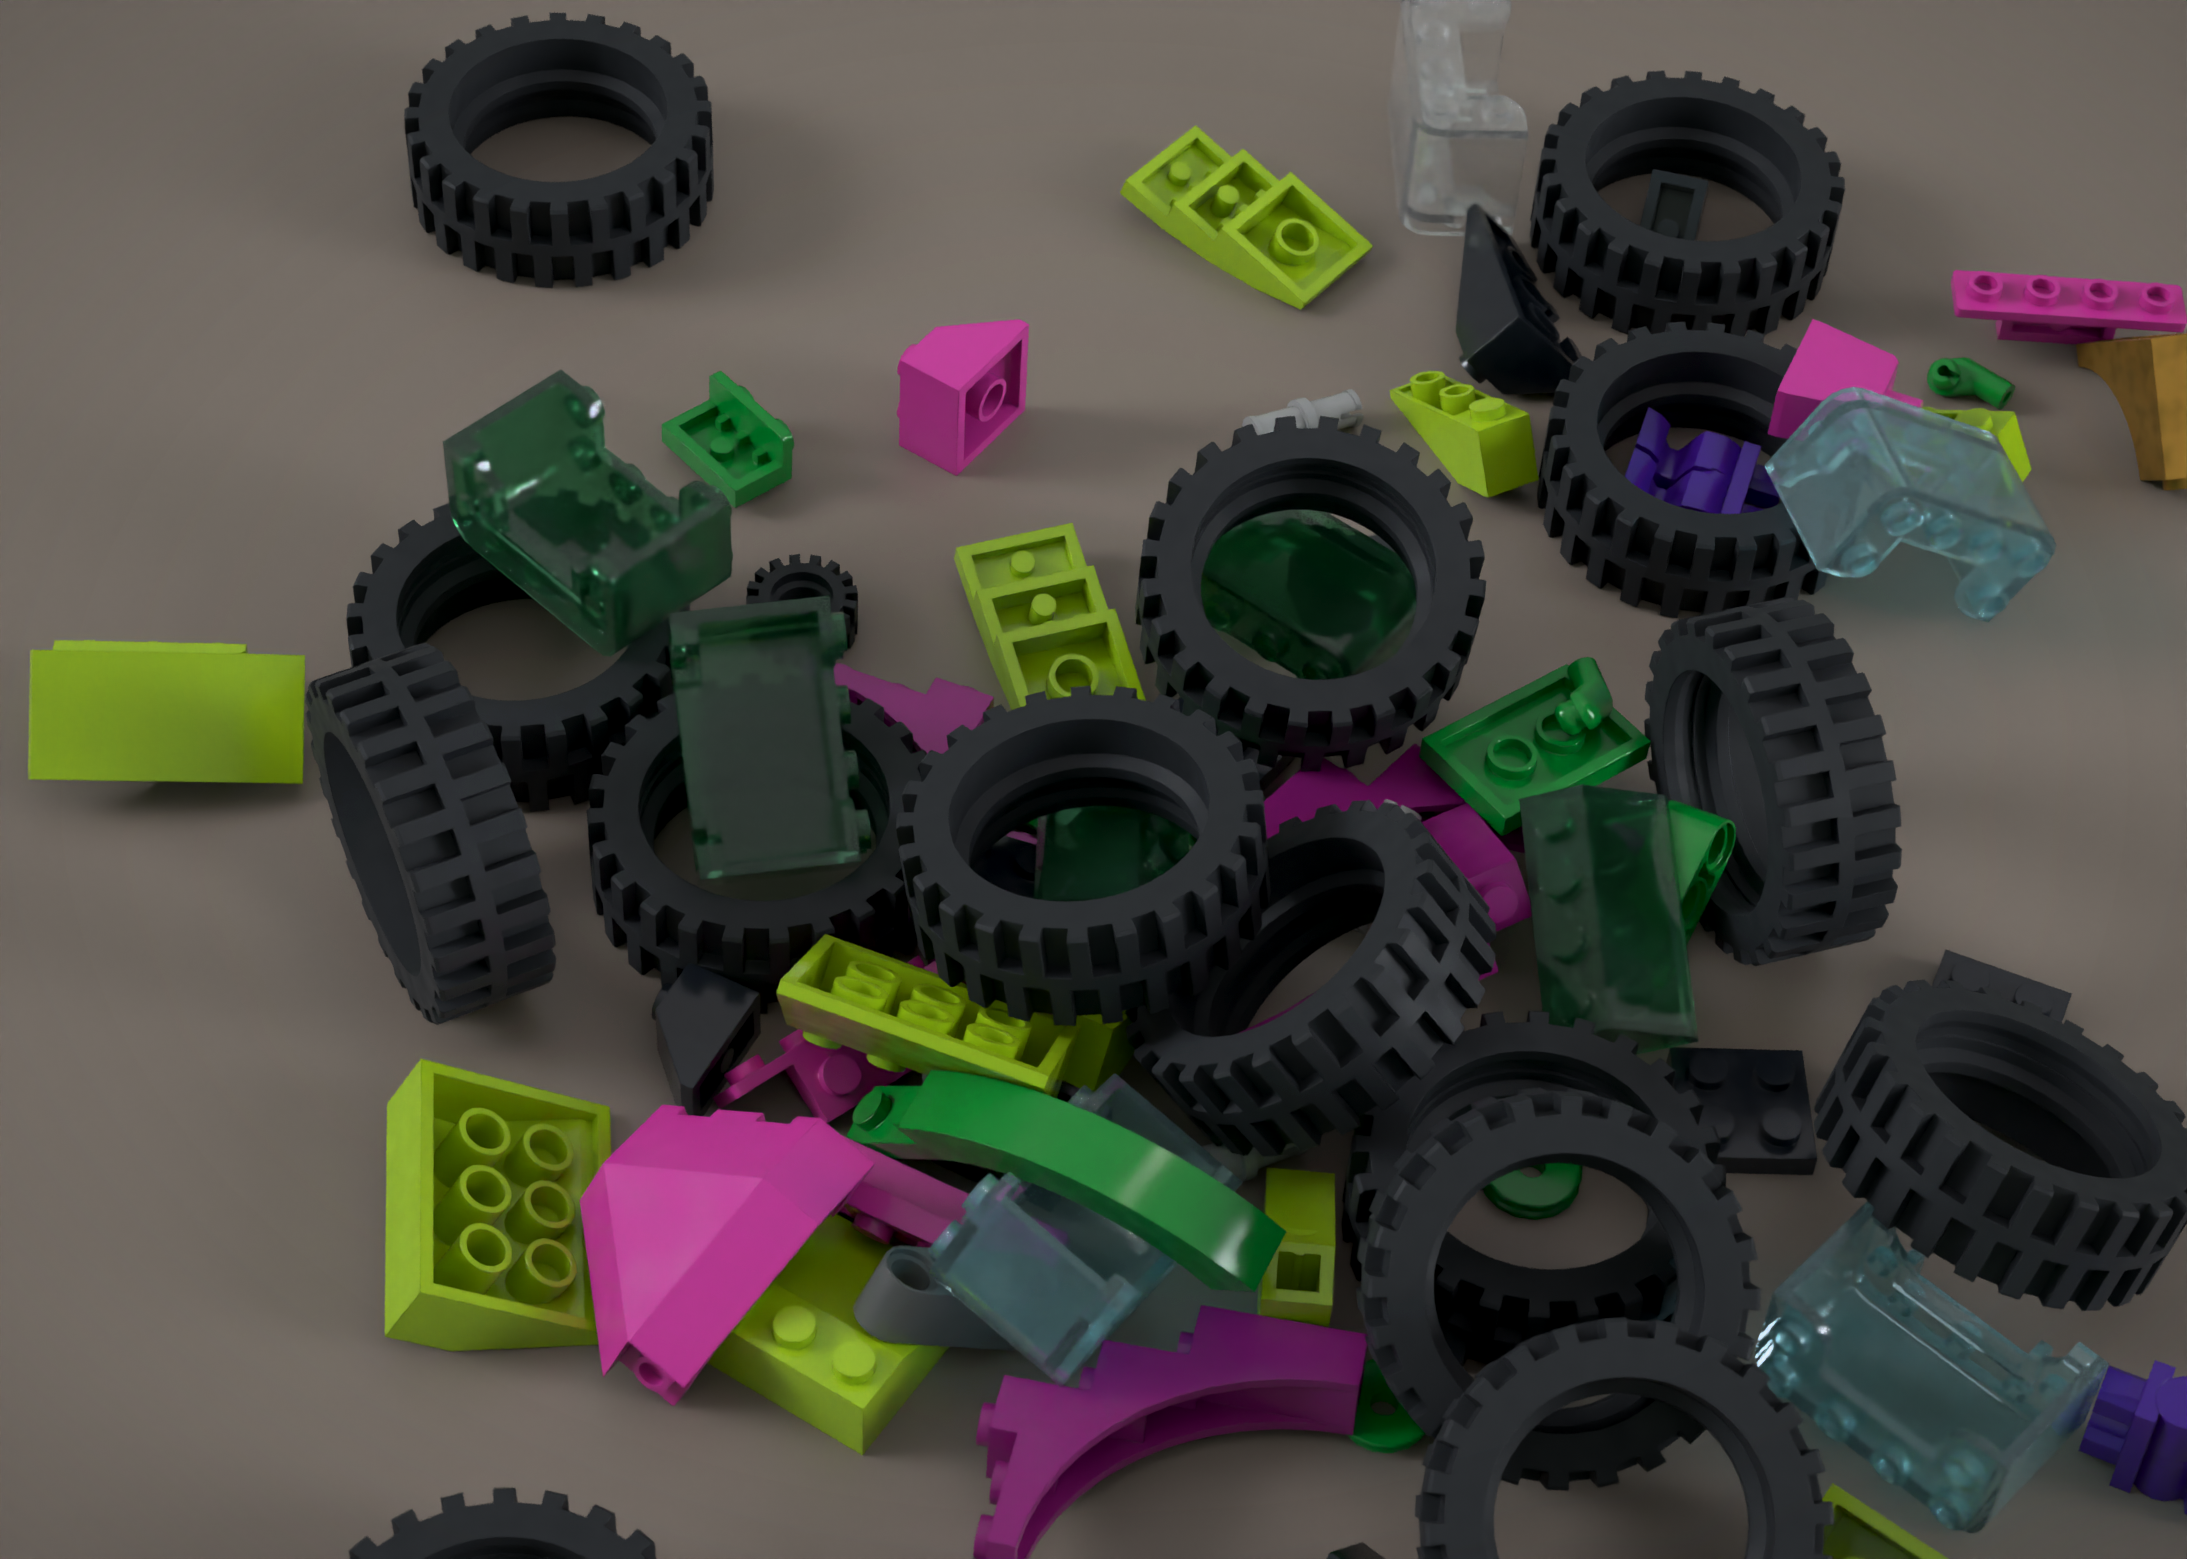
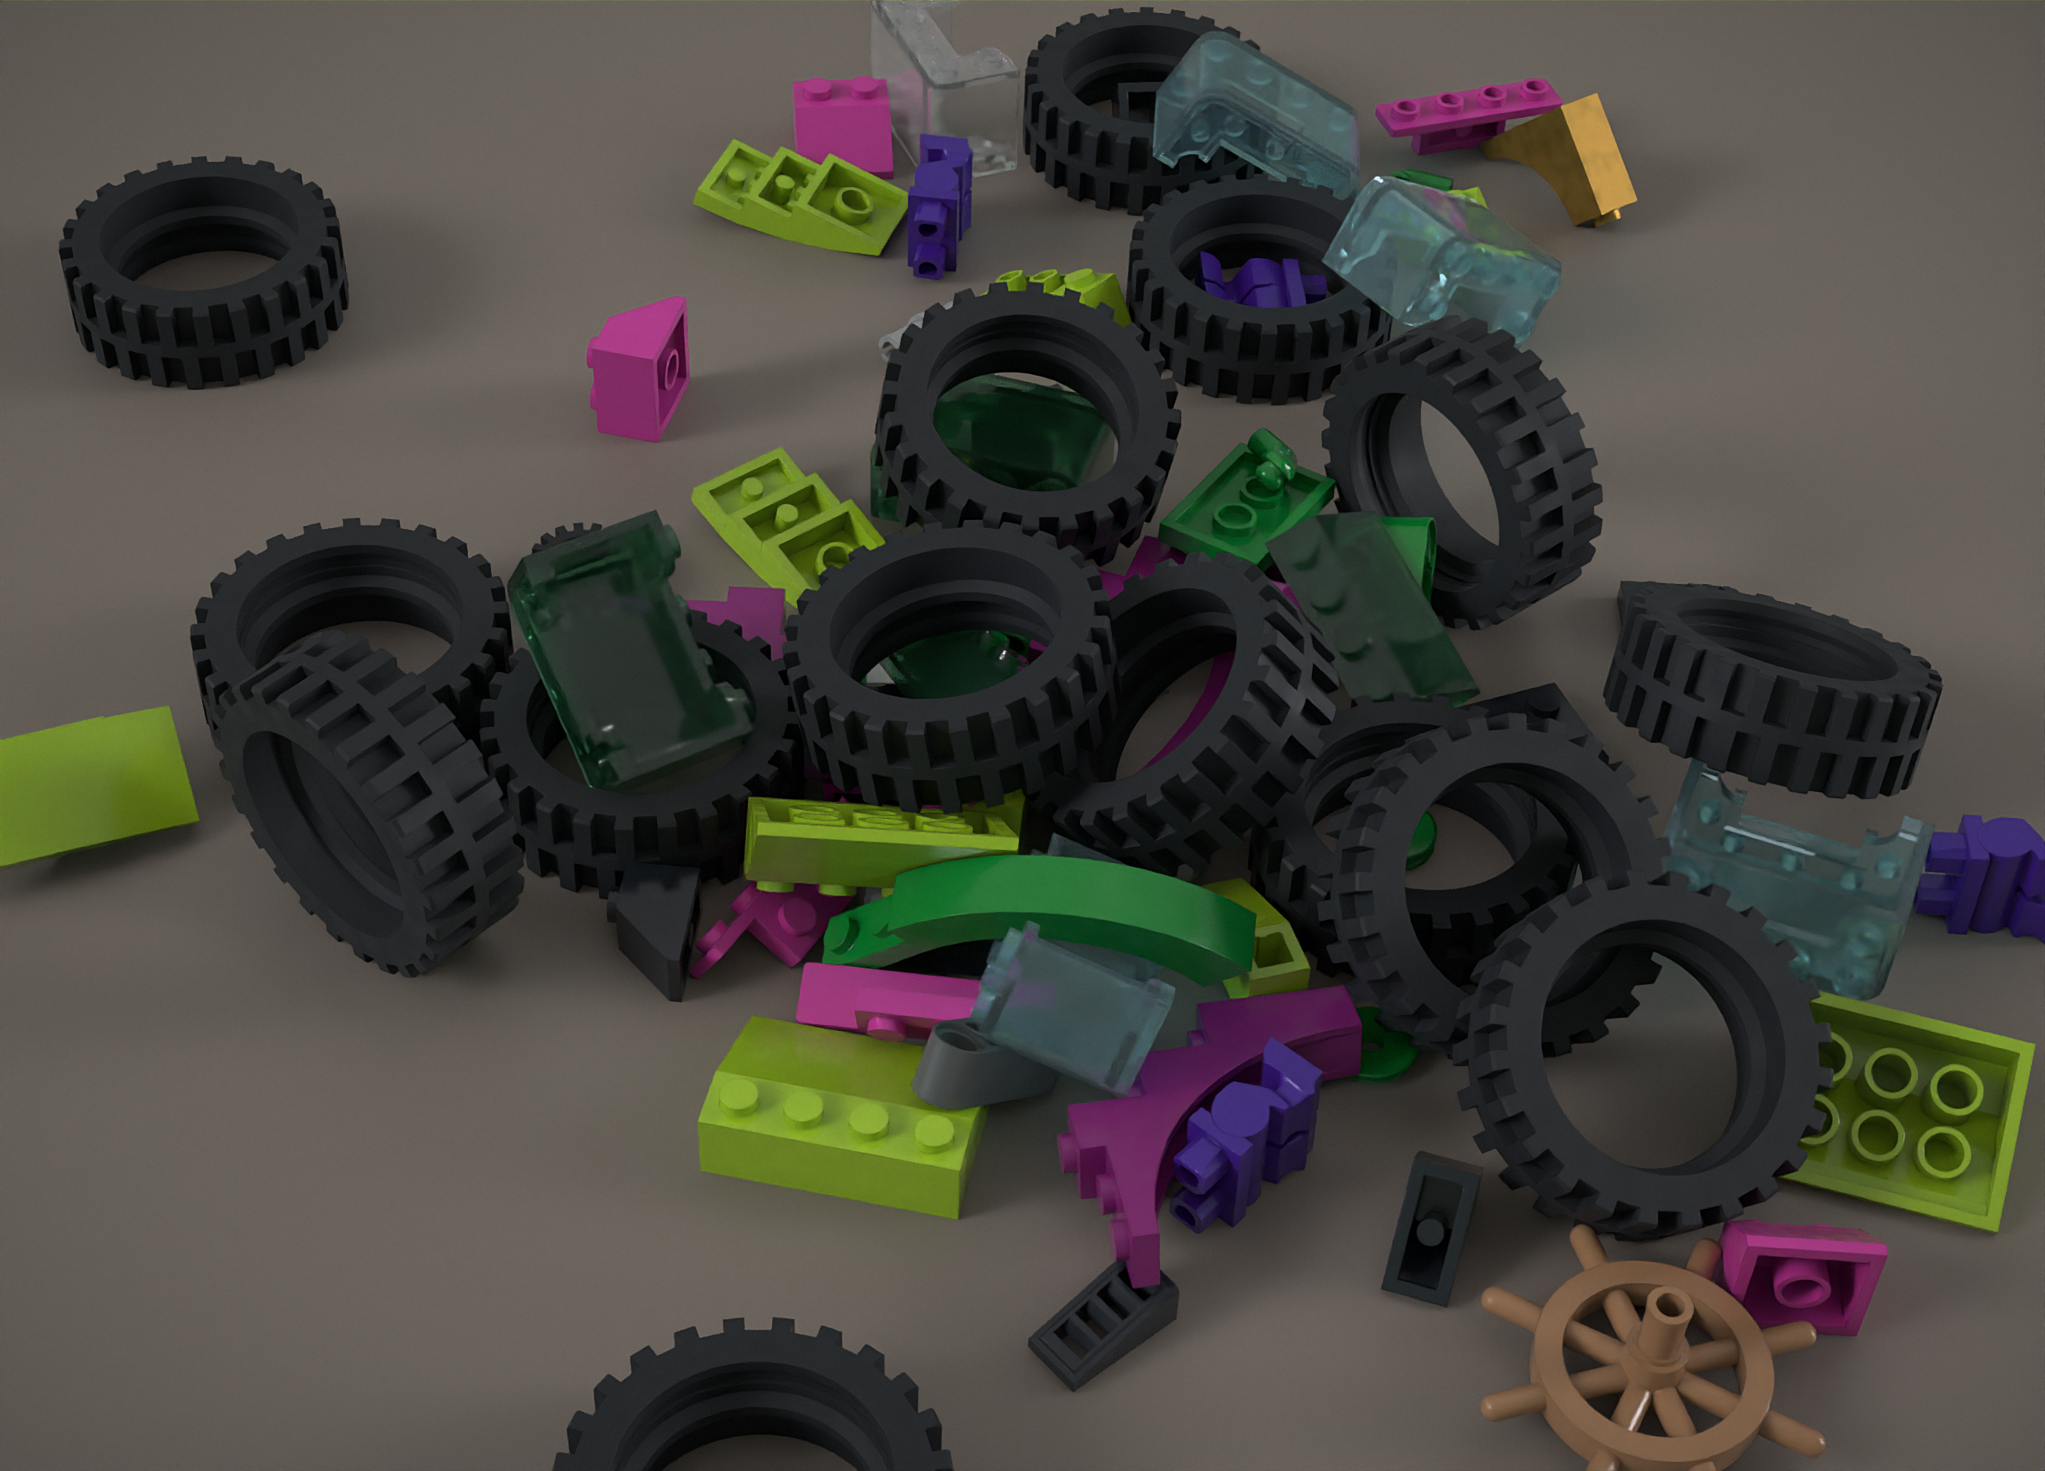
camera: 20 degrees left, 5 degrees down
(488, 1212) = (544, 1119): lime slope -> none
(579, 522) = (380, 535): clear green windscreen -> none
(698, 1226) = (746, 1070): dark pink panel -> none
(732, 442) = (460, 457): green bracket -> none
(1177, 1472) = (1247, 1139): none -> dark purple hips
(1330, 138) = (844, 120): none -> dark pink slope
(1381, 272) = (939, 205): none -> dark purple hips
(1504, 318) = (1050, 224): black wedge -> none
(1777, 254) = (1259, 111): none -> clear light blue windscreen
(1824, 365) = (1334, 185): dark pink torso -> none

